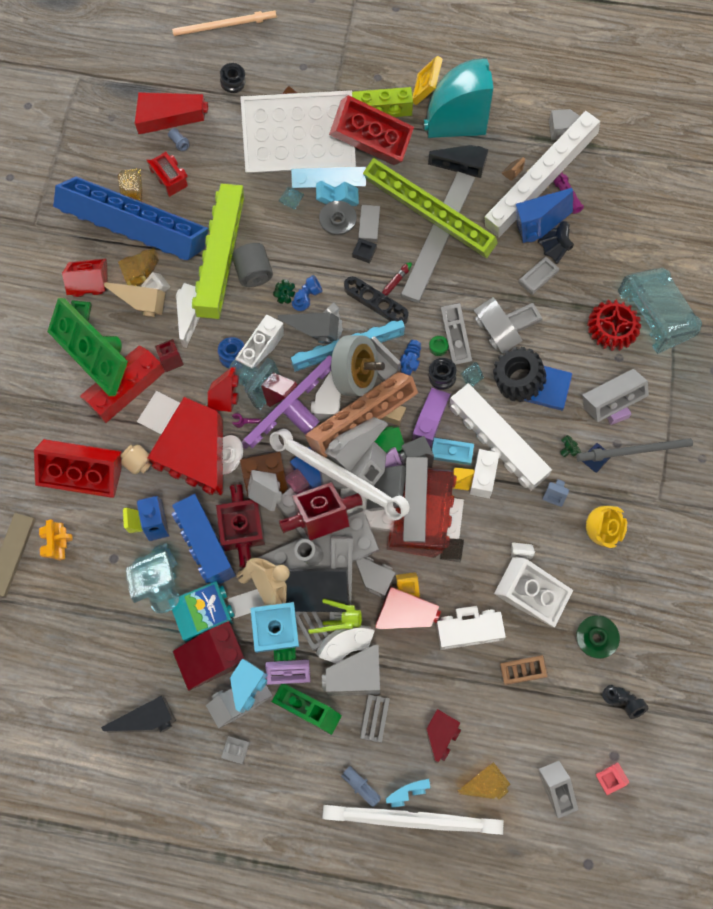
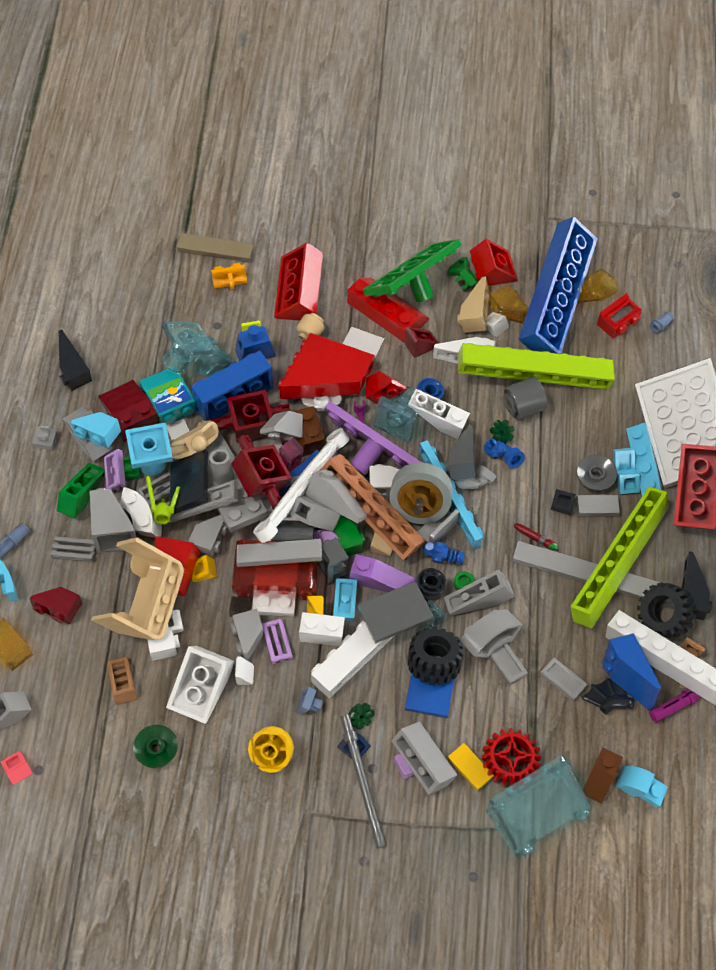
camera: 80 degrees right, 10 degrees down
(98, 301) = (468, 276): none -> green tile
(168, 110) = (693, 307): red slope -> none
(277, 388) = (391, 427): slope -> none
(291, 197) = (615, 431): clear light blue slope -> none
(378, 298) = (506, 518): black beam -> none
(453, 632) = (154, 596): none -> tan windscreen
(472, 521) = (281, 657): none -> lavender tile
(476, 403) = (395, 612): none -> dark grey tile
(483, 542) = (248, 630): none -> light grey slope
(501, 183) = (682, 614): none -> black tyre
(616, 696) = (95, 764): black arm -> none
(618, 361) = (470, 767): none -> yellow tile
(629, 255) = (602, 775): none -> reddish brown slope
(639, 228) = (641, 783): none -> medium azure brick

